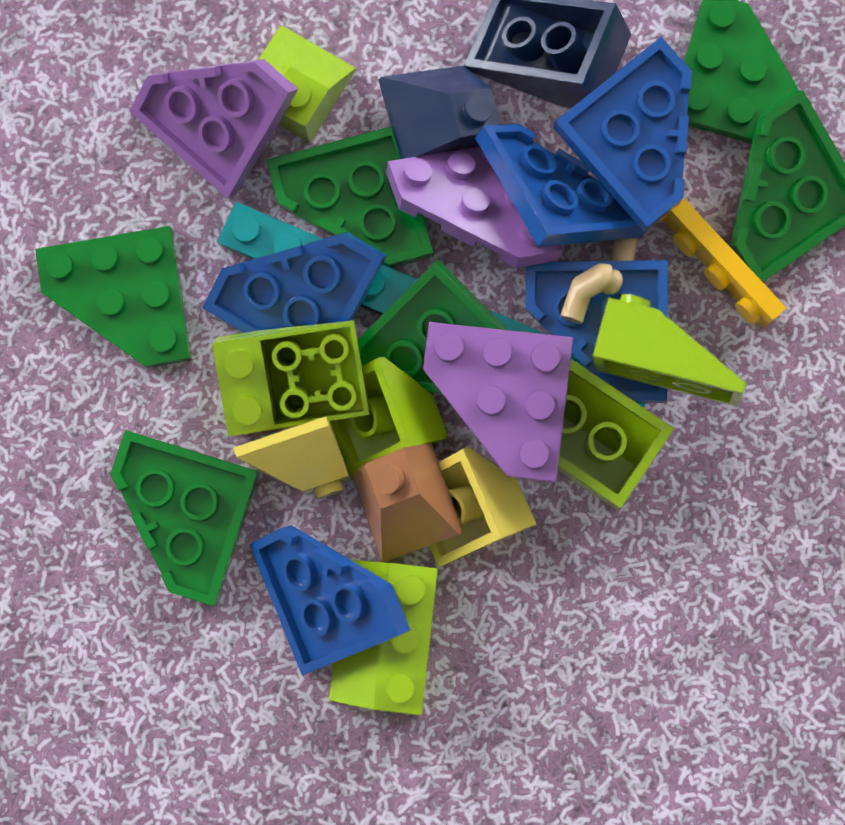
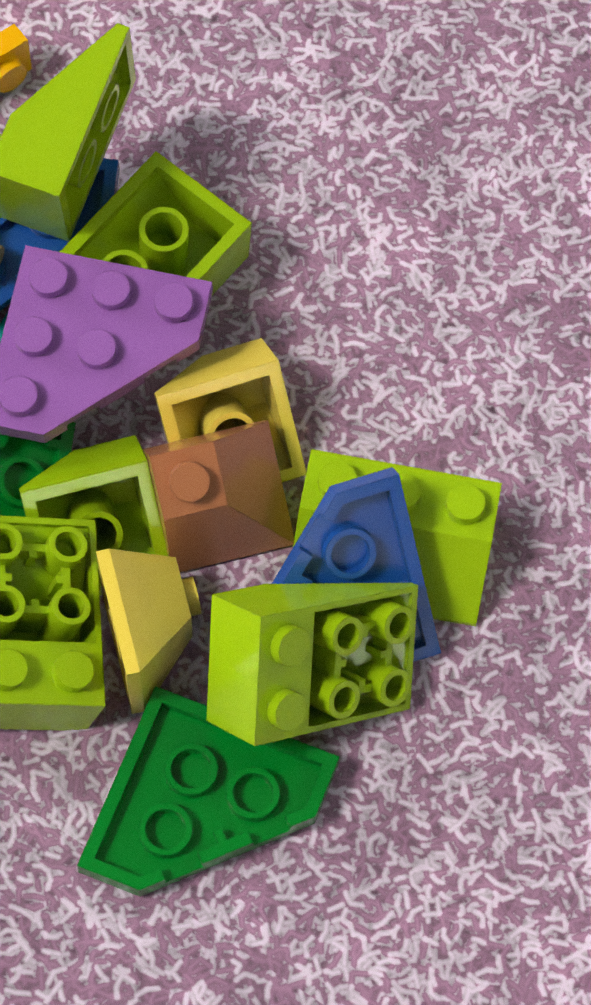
camera: 95 degrees left, 15 degrees down
(272, 578) = (309, 657): none -> lime slope

